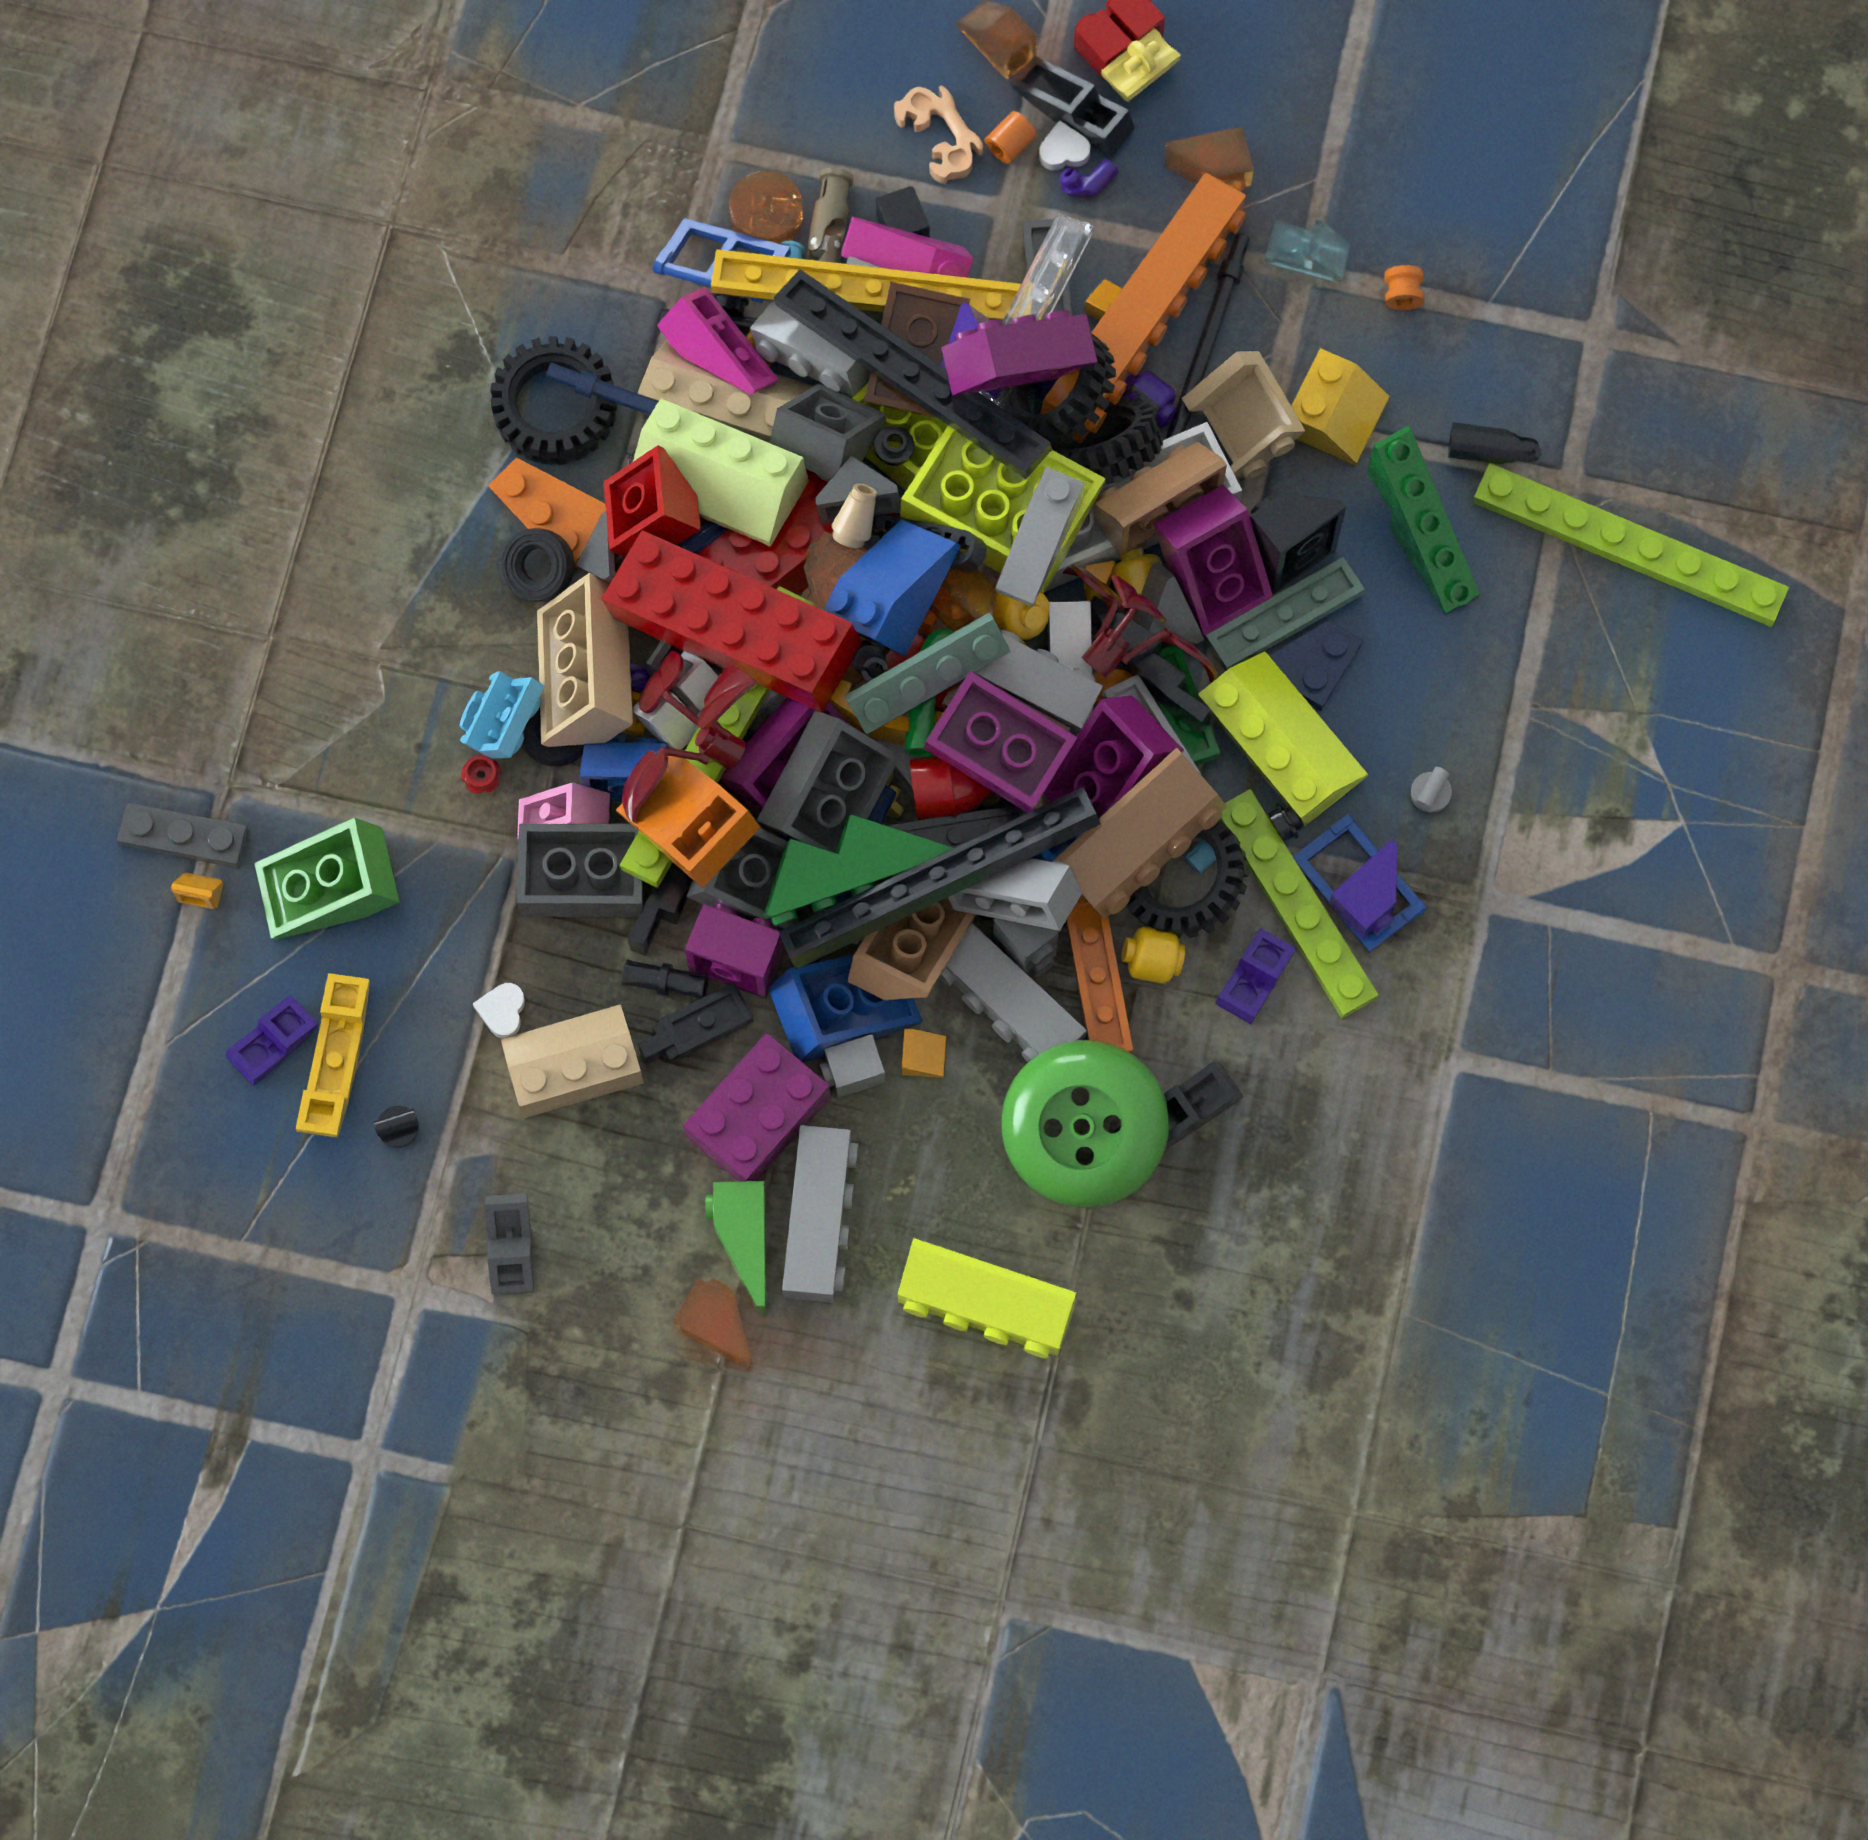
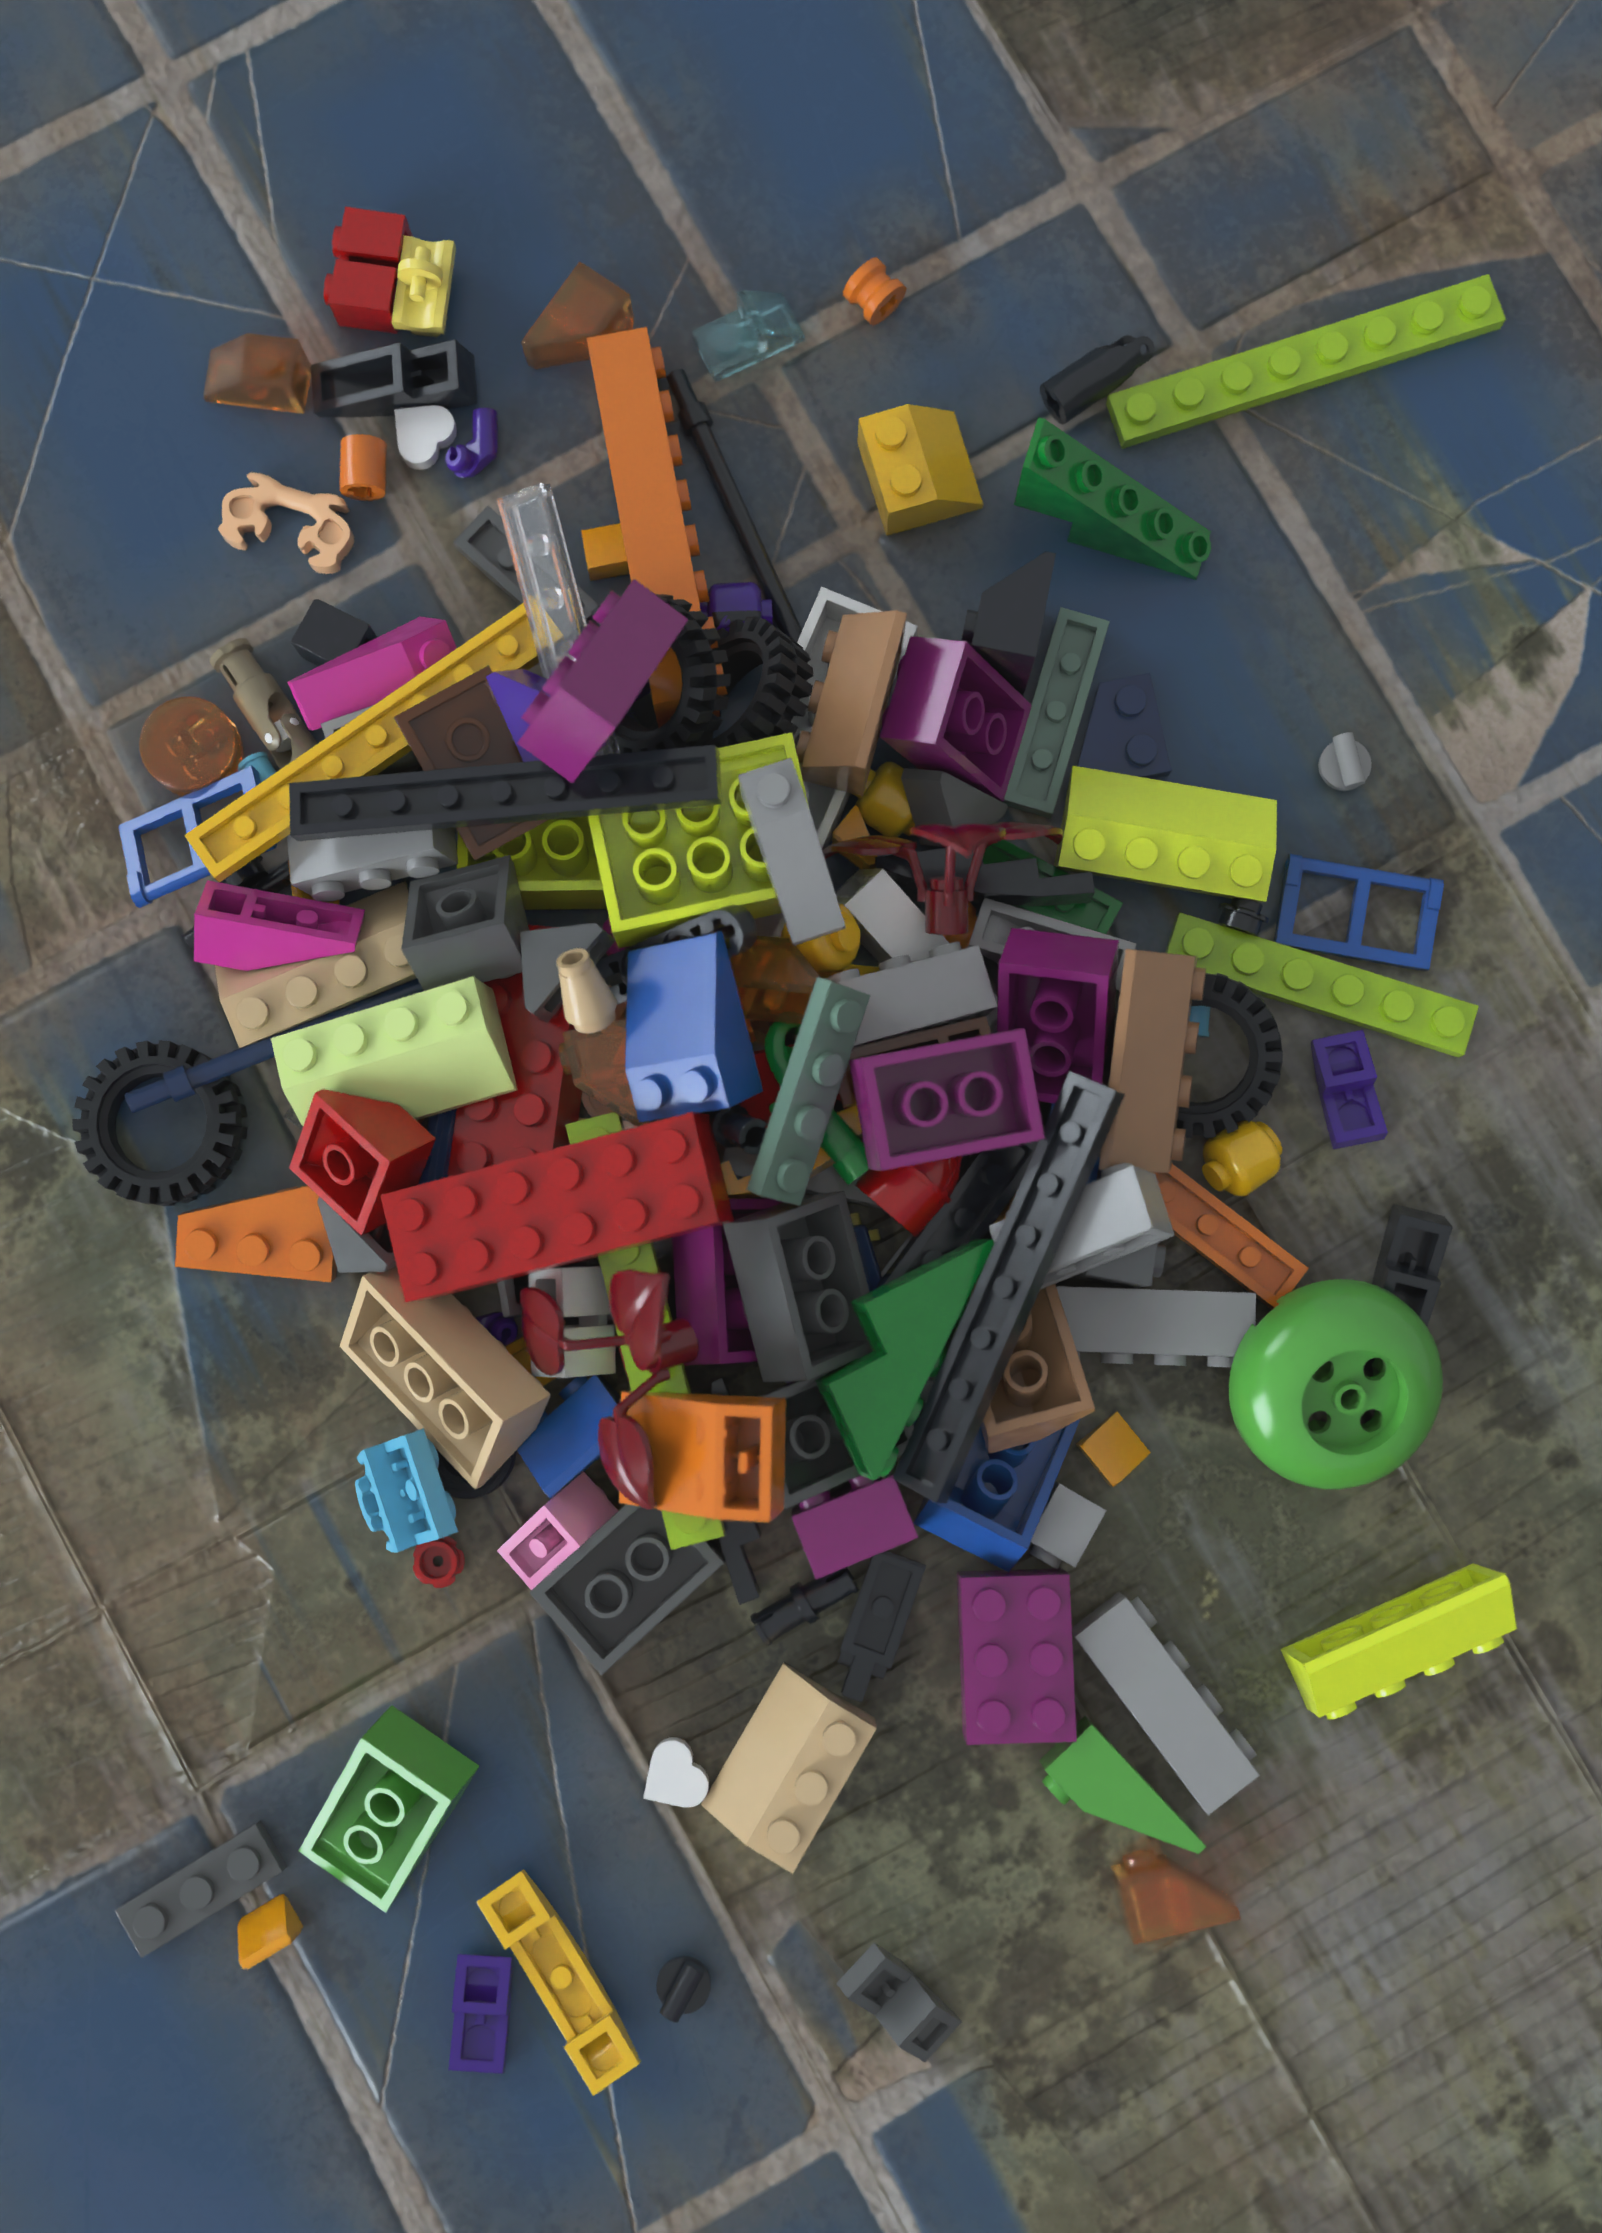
camera: 40 degrees left, 10 degrees up
(514, 565) = (293, 1334): black tyre -> none
(894, 456) = (545, 895): black plate -> none
(1247, 412) = (848, 543): tan panel -> none
(1370, 893) = (1390, 913): dark purple slope -> none

